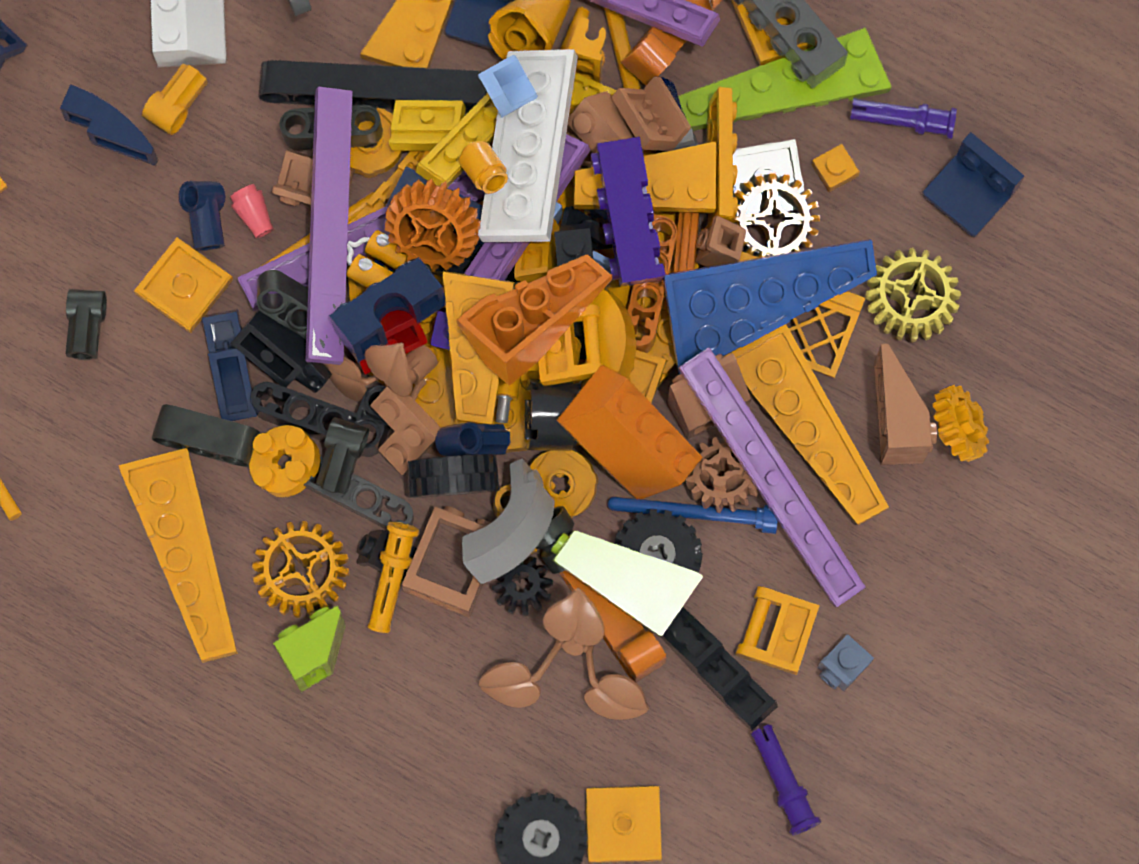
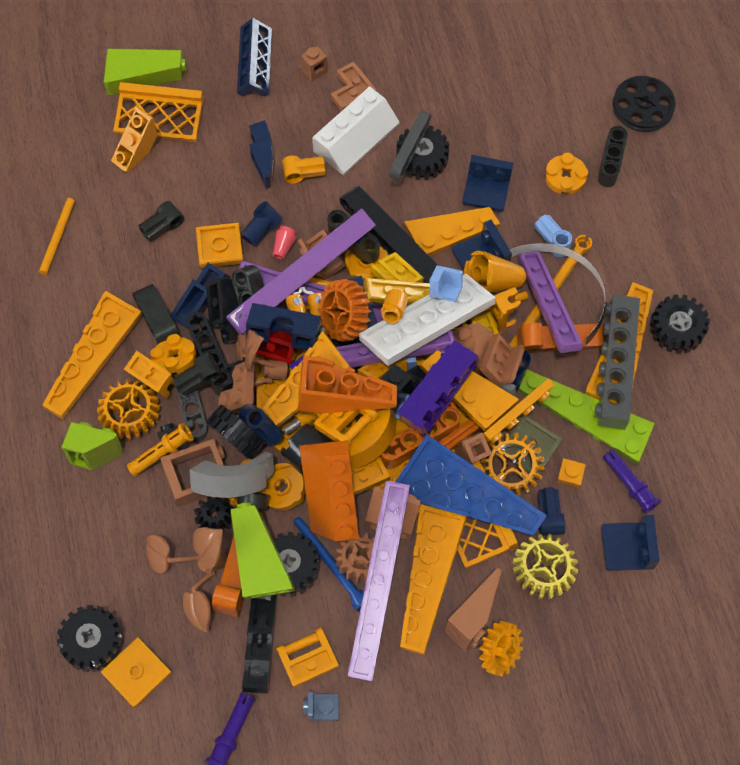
camera: 45 degrees right, 10 degrees down
(283, 506) = (150, 373): none -> light orange hinge
(854, 226) = (550, 505): none -> dark blue piece

